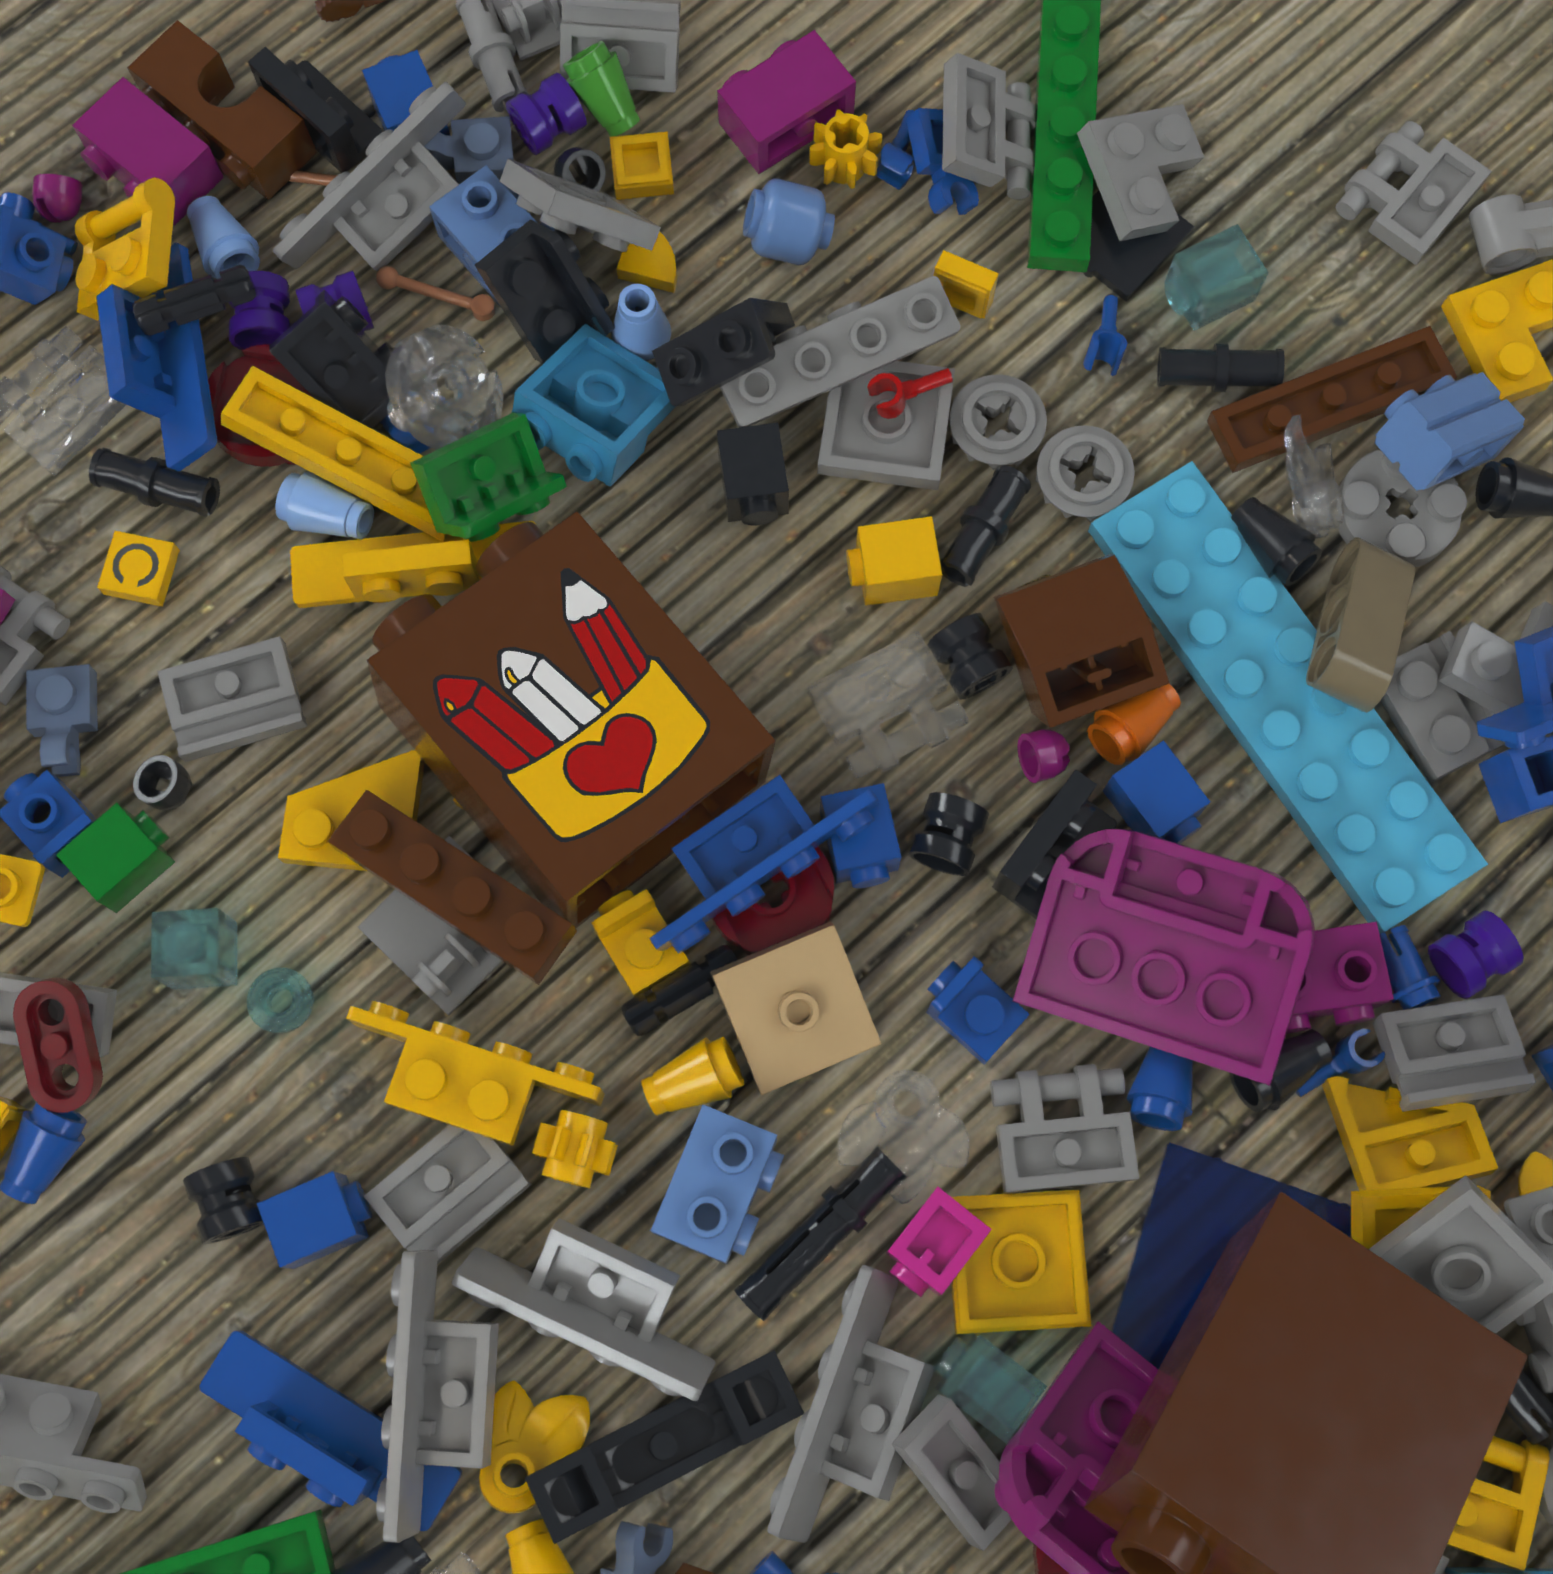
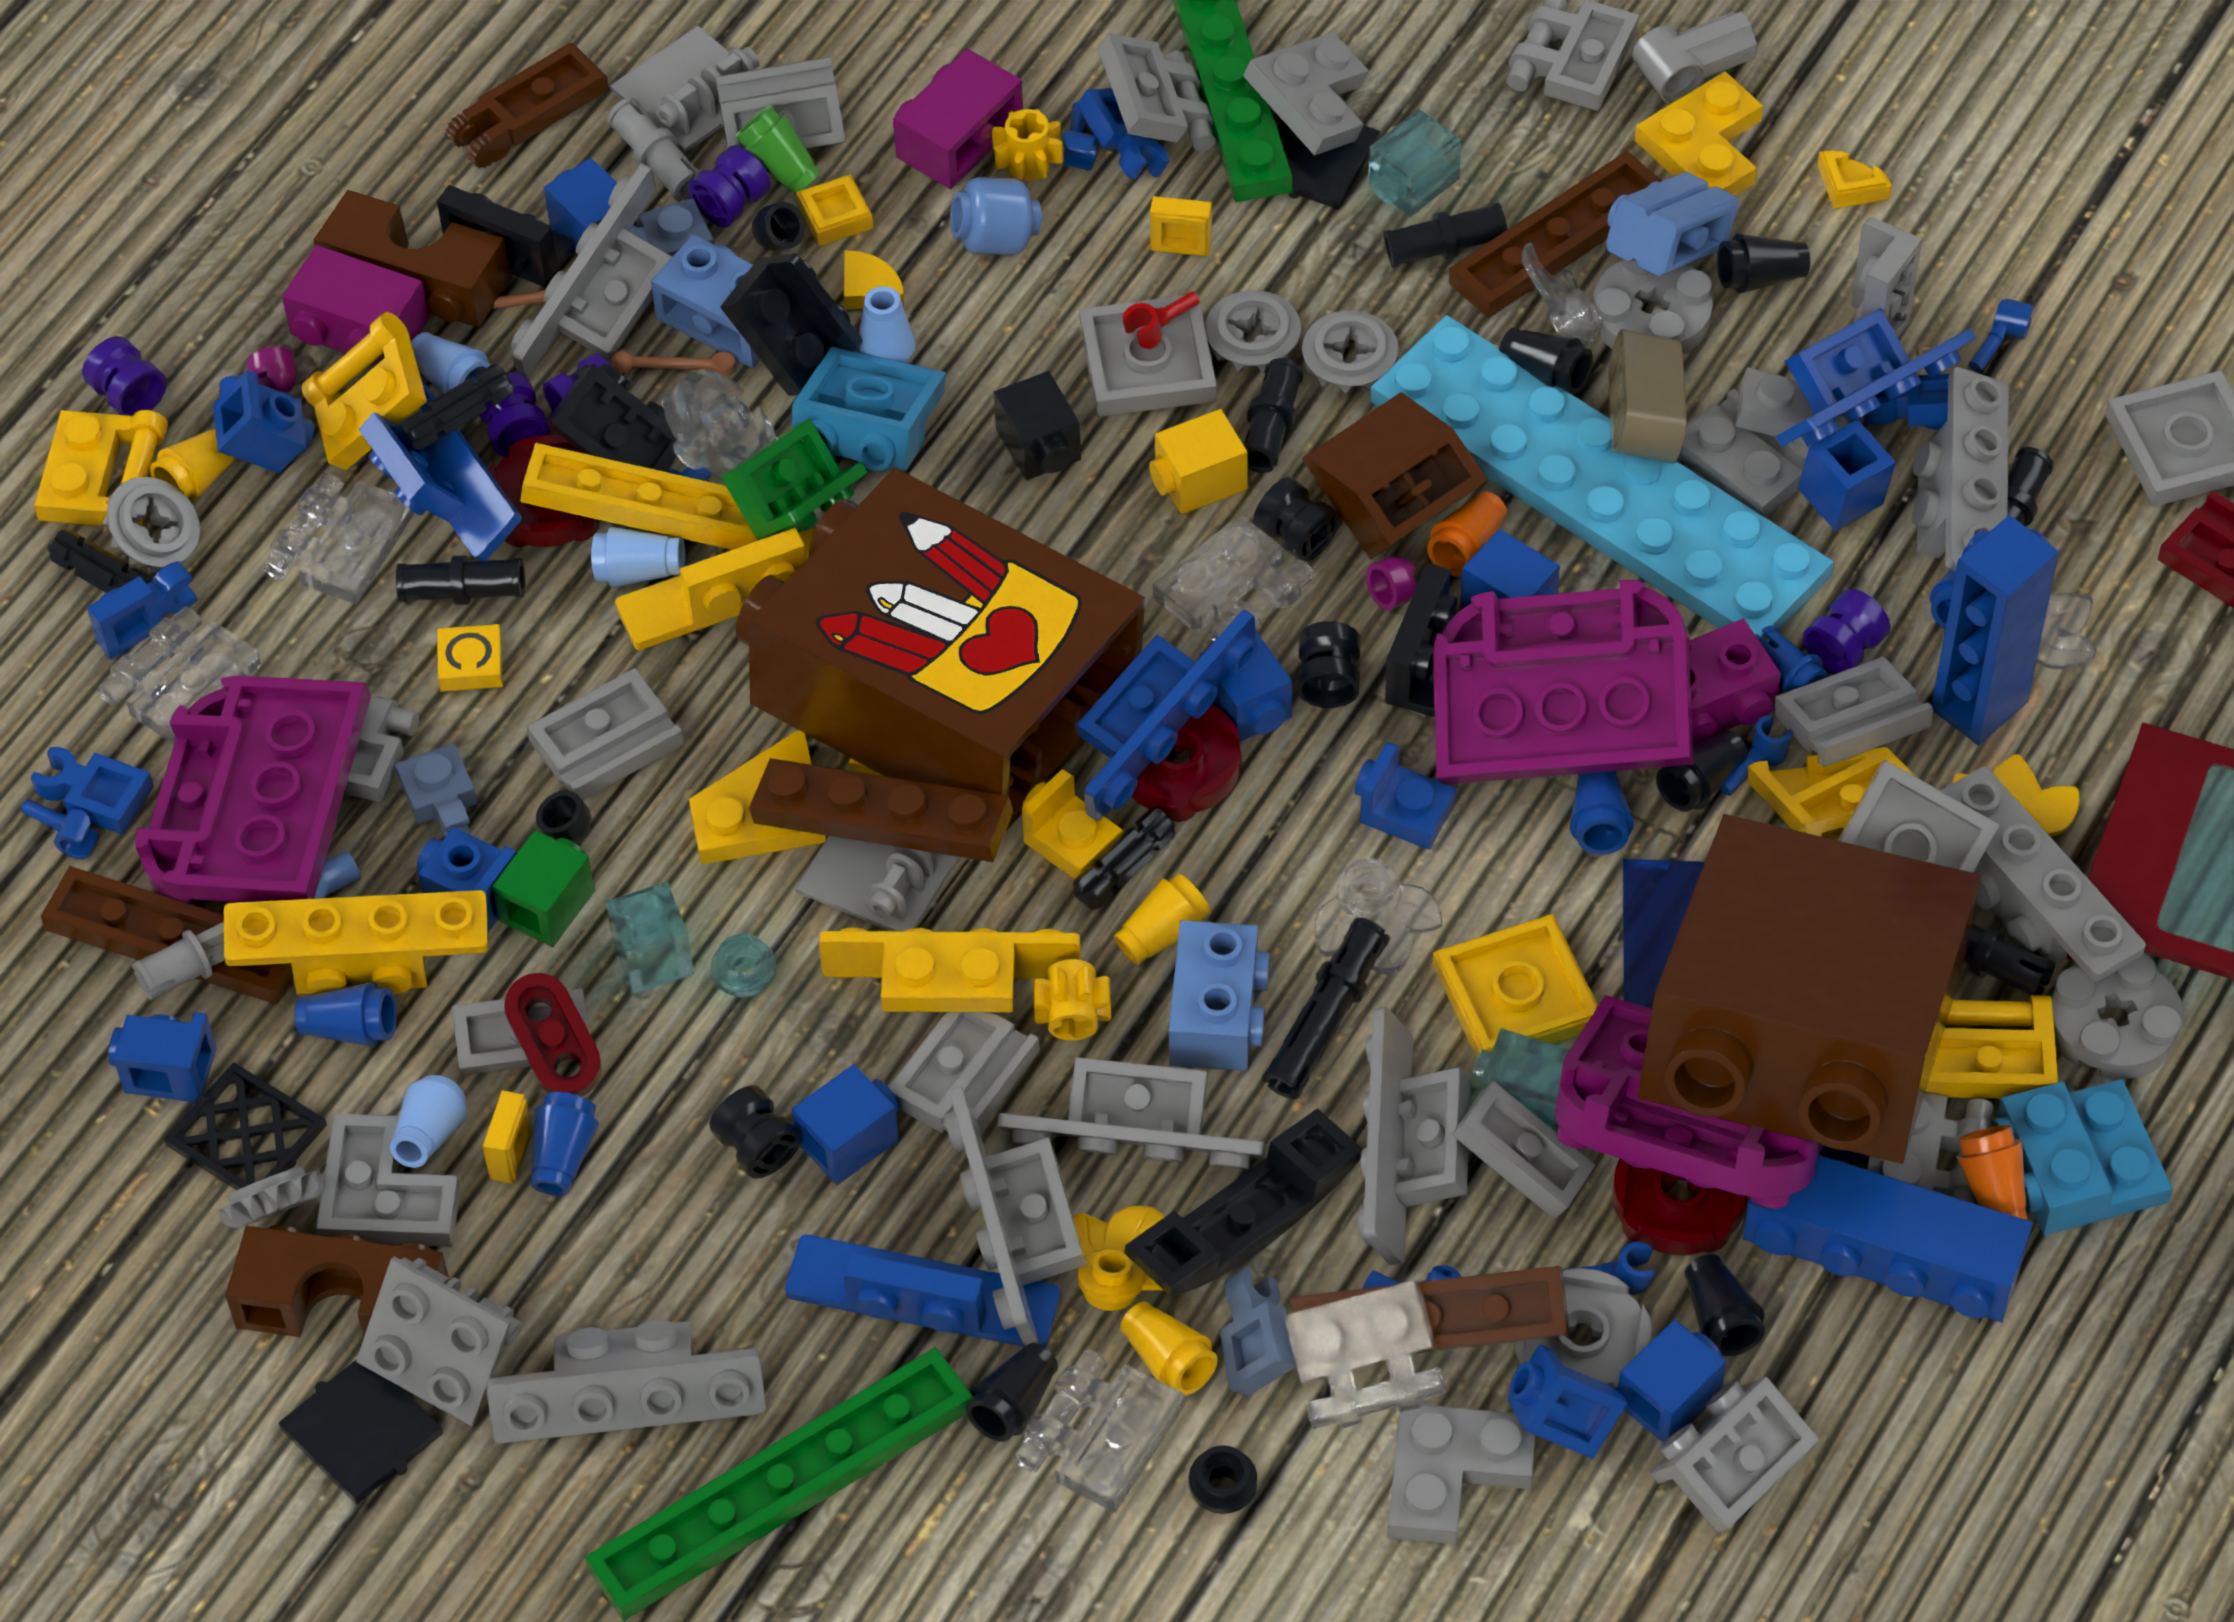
camera: 15 degrees left, 20 degrees down
(572, 205) = (788, 233): light grey plate -> none
(721, 349) = (973, 321): black bracket -> none
(796, 1007) = (1237, 836): tan plate -> none
(842, 350) = (1084, 300): light grey bracket -> none
(936, 1244) = (1435, 983): dark pink bracket -> none
(1065, 1150) = (1528, 885): light grey plate -> none
(1106, 341) = (1331, 243): blue hand -> none

